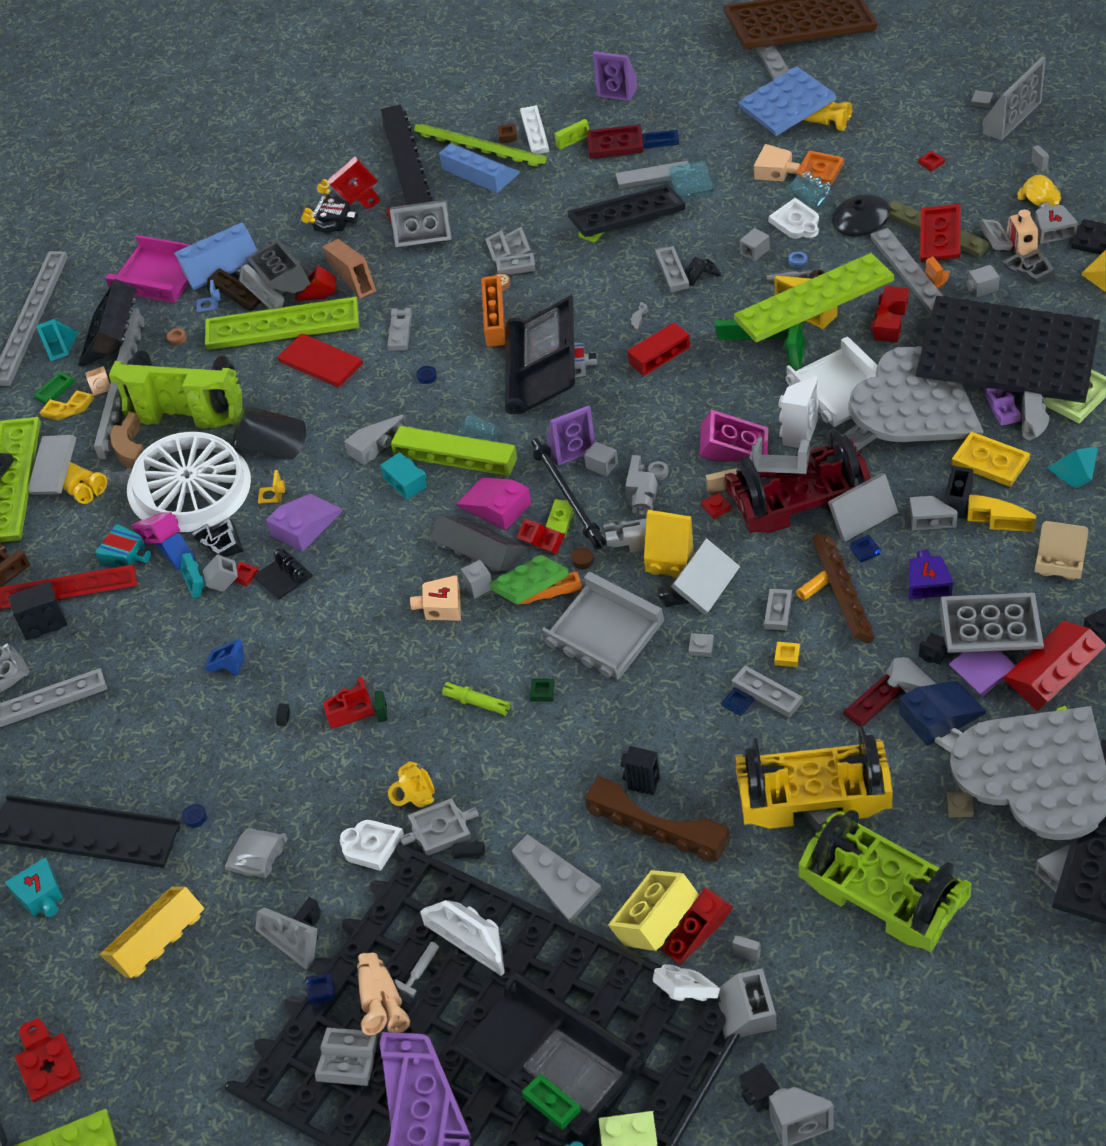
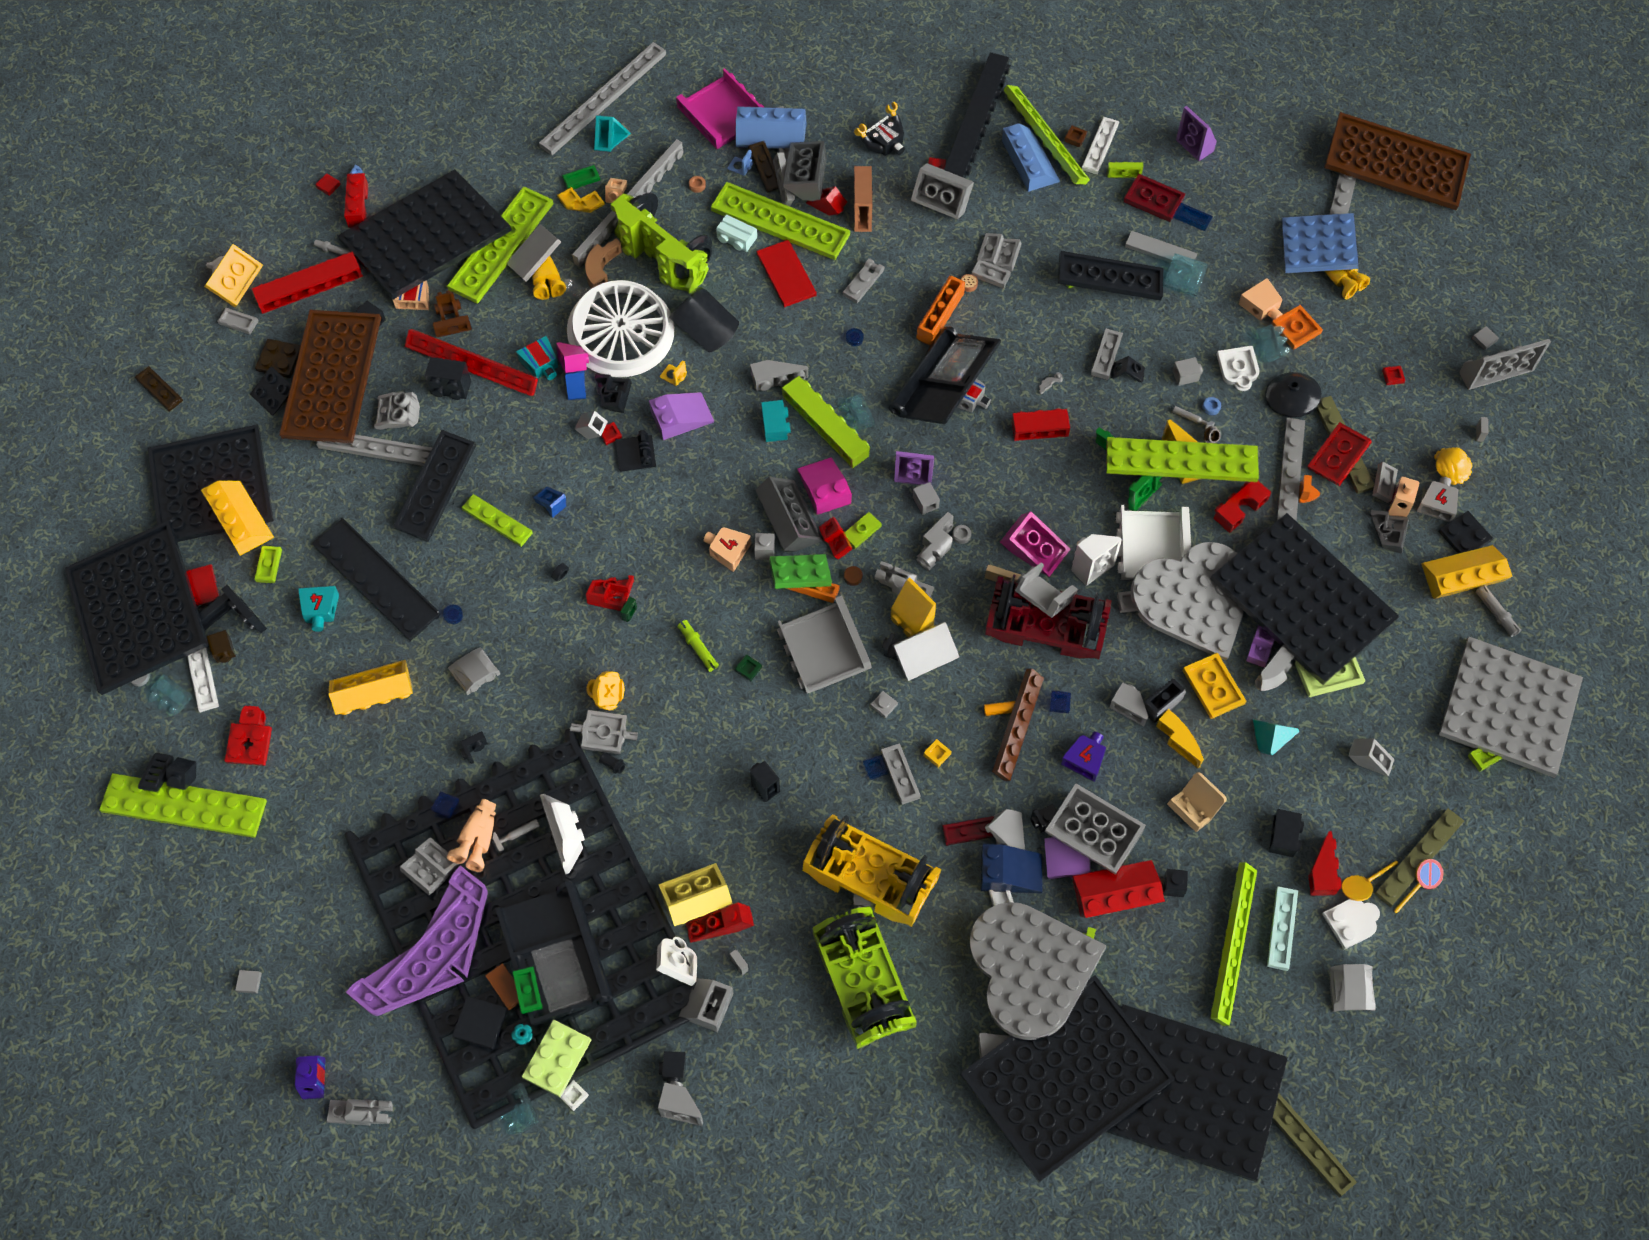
camera: 25 degrees right, 15 degrees up
(91, 711) = (435, 485): none -> black plate
(108, 323) = (651, 144): black slope -> none
(179, 708) = (497, 520): none -> lime plate
(190, 573) = (574, 407): teal plate -> none
(247, 352) = (736, 233): none -> light aqua brick
(288, 935) = (451, 749): light grey wing -> none
(360, 189) = (921, 127): red plate -> none
(370, 843) = (551, 714): white plate -> none
(520, 1120) = (504, 986): none -> dark orange tile
(559, 880) = (656, 828): light grey wing -> none
(590, 530) = (873, 557): black bar -> none
(700, 836) = (771, 858): reddish brown arch -> none
(716, 505) = (981, 592): red plate -> none
(778, 609) = (959, 711): light grey plate -> none
(863, 507) = (1082, 667): light grey tile -> none
(959, 804) = (963, 952): dark tan plate -> none
(983, 281) = (1338, 520): light grey brick -> none

